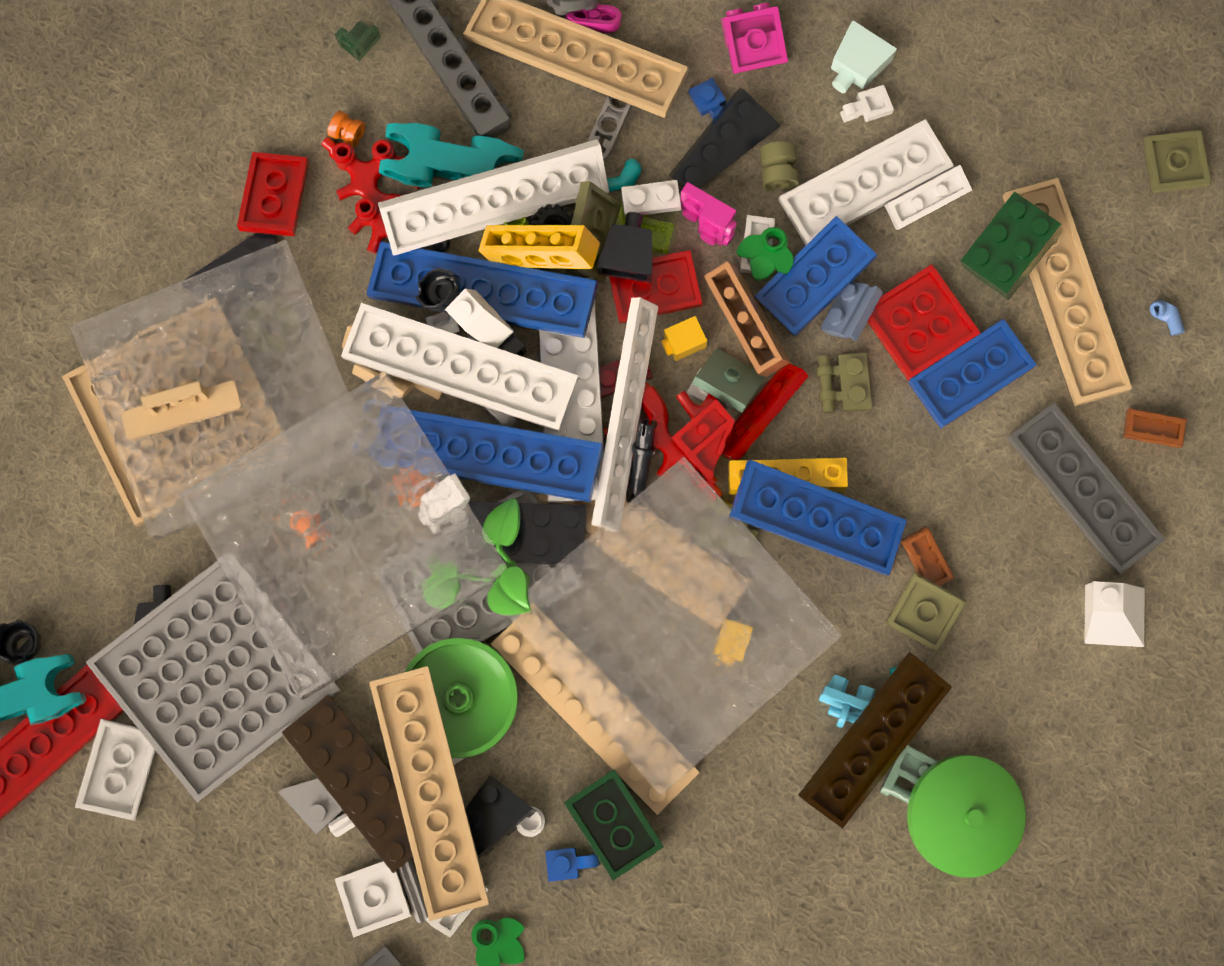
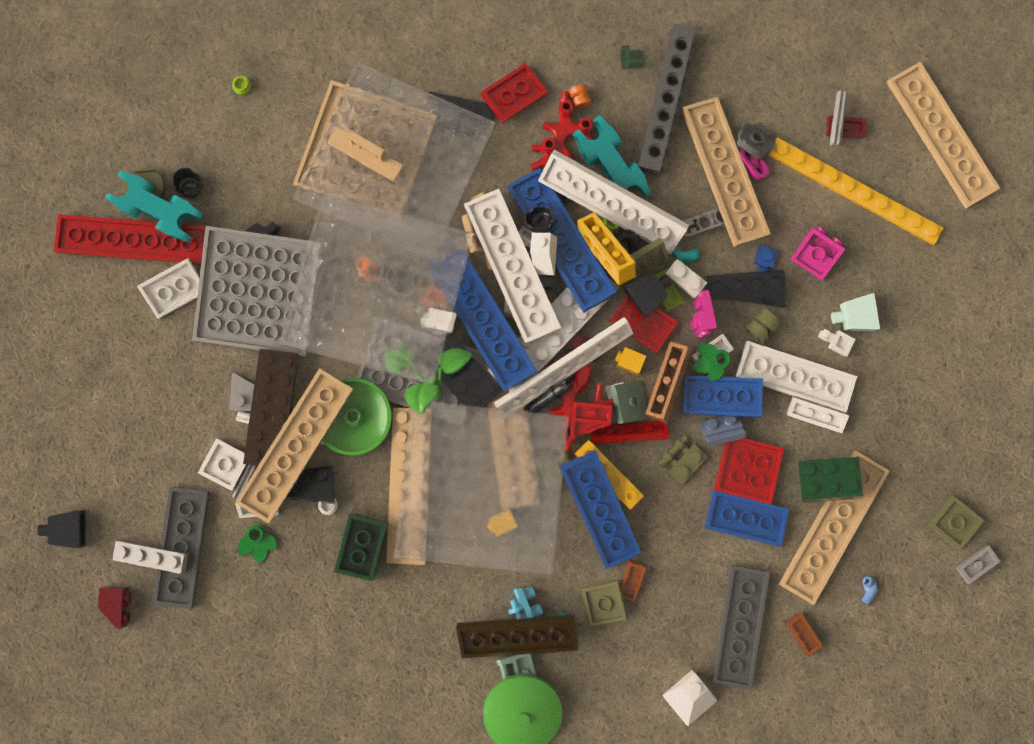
camera: 40 degrees right, 5 degrees up
(564, 863) = (323, 540): blue plate -> none

